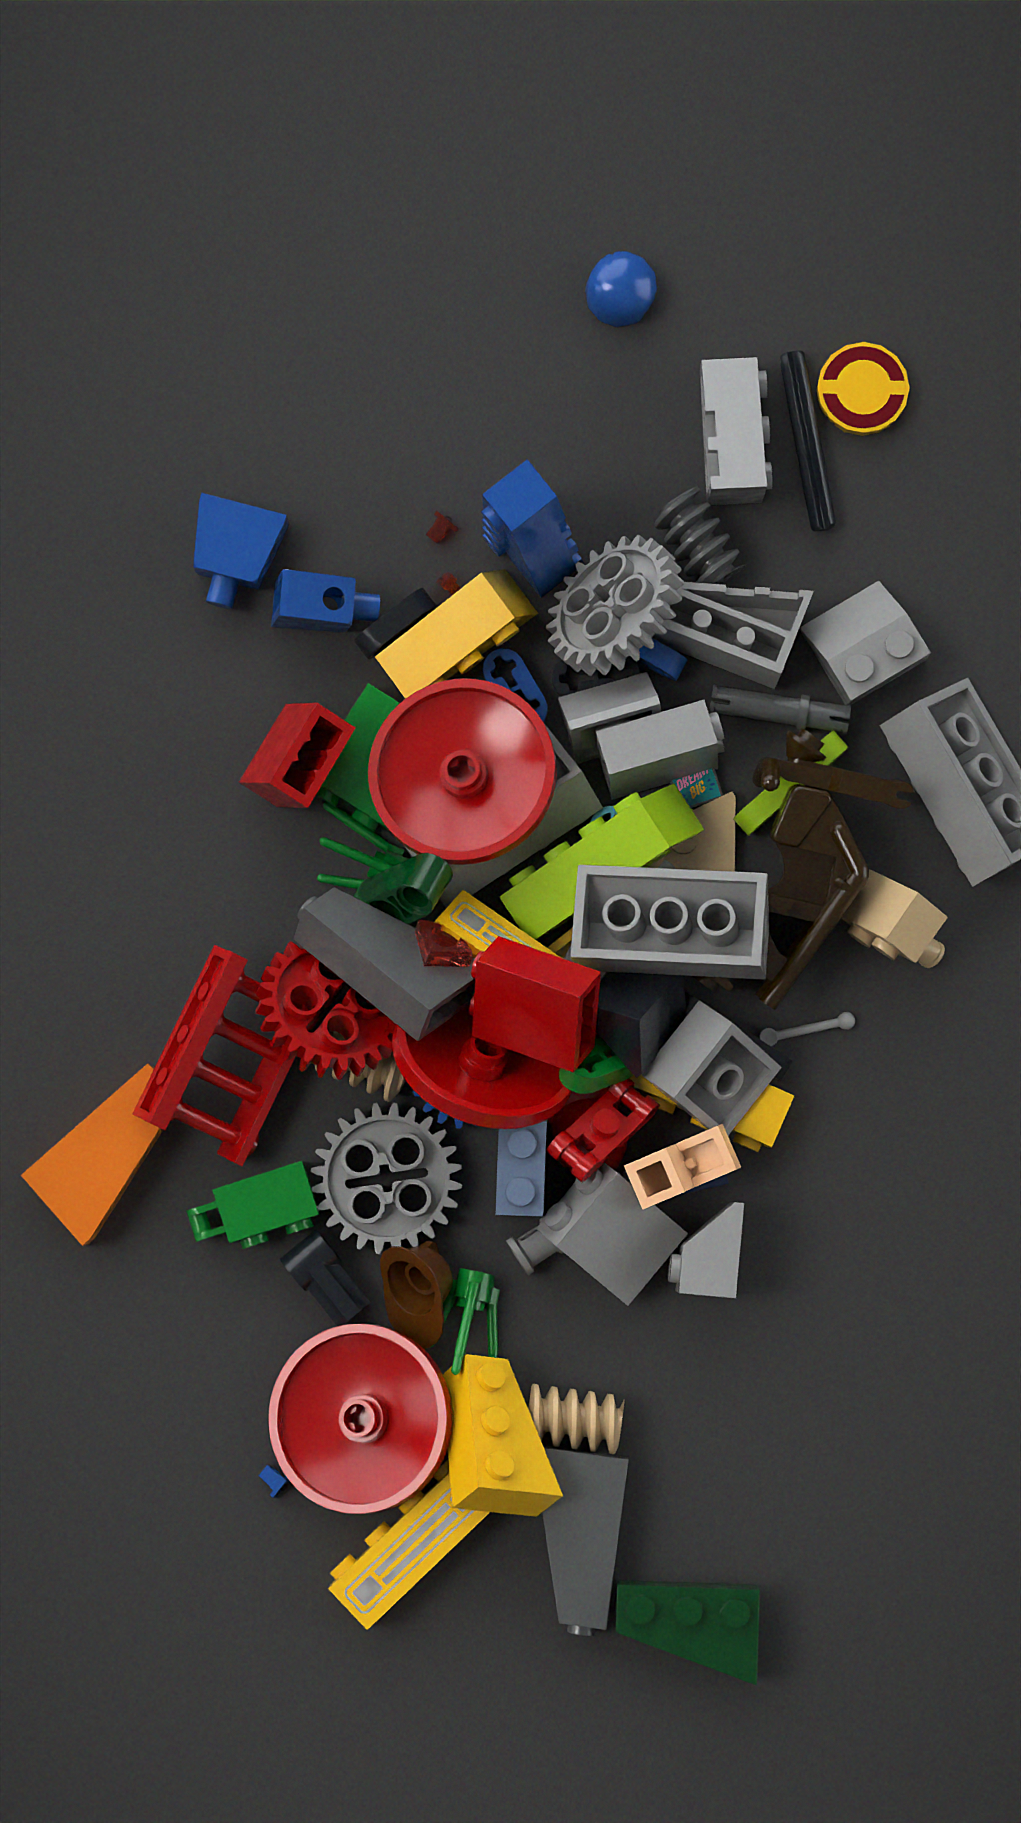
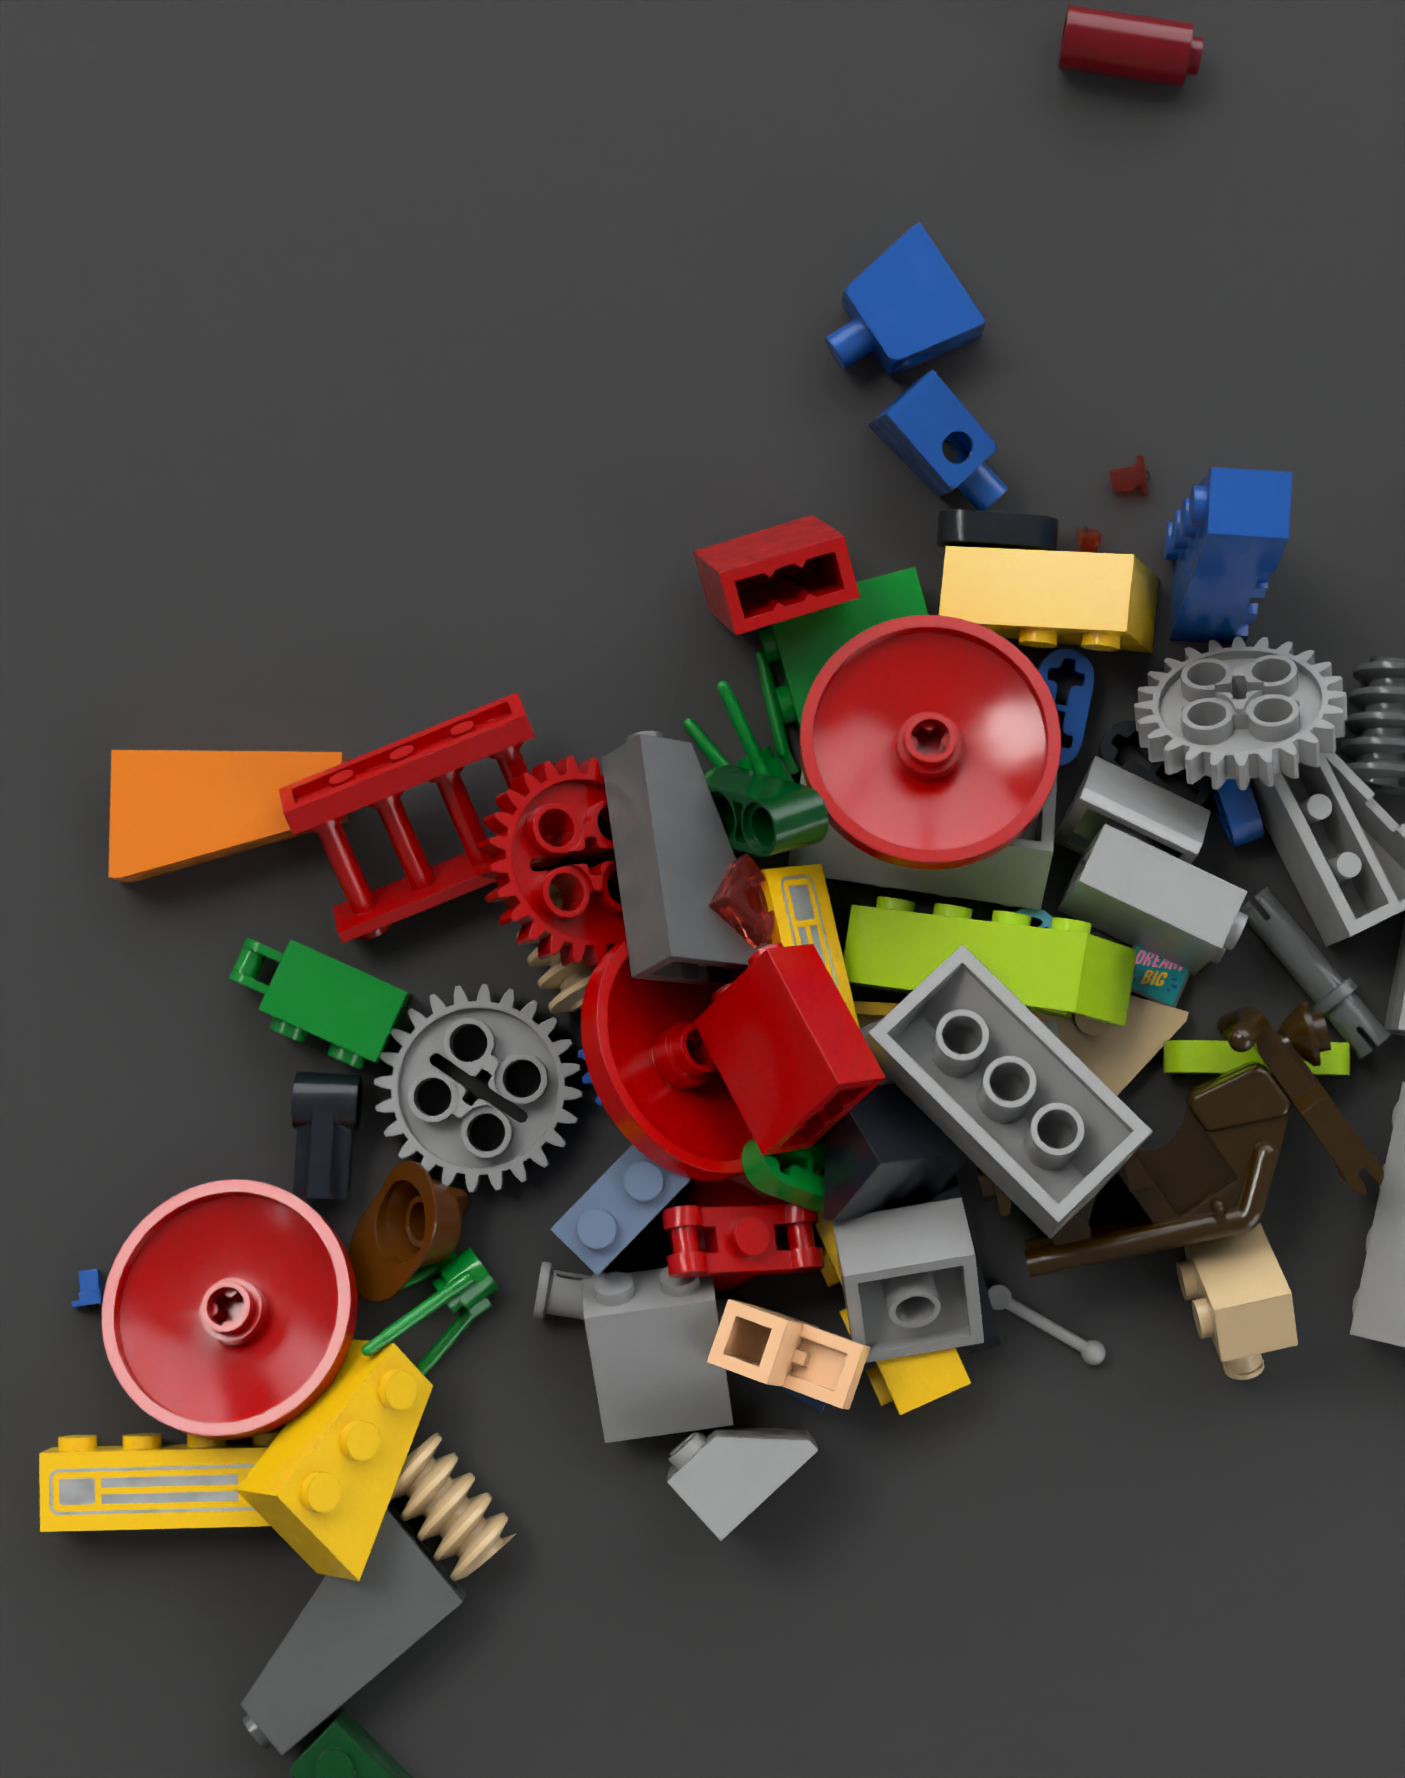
camera: 45 degrees right, 0 degrees up
(227, 292) = (1129, 46): none -> dark red brick

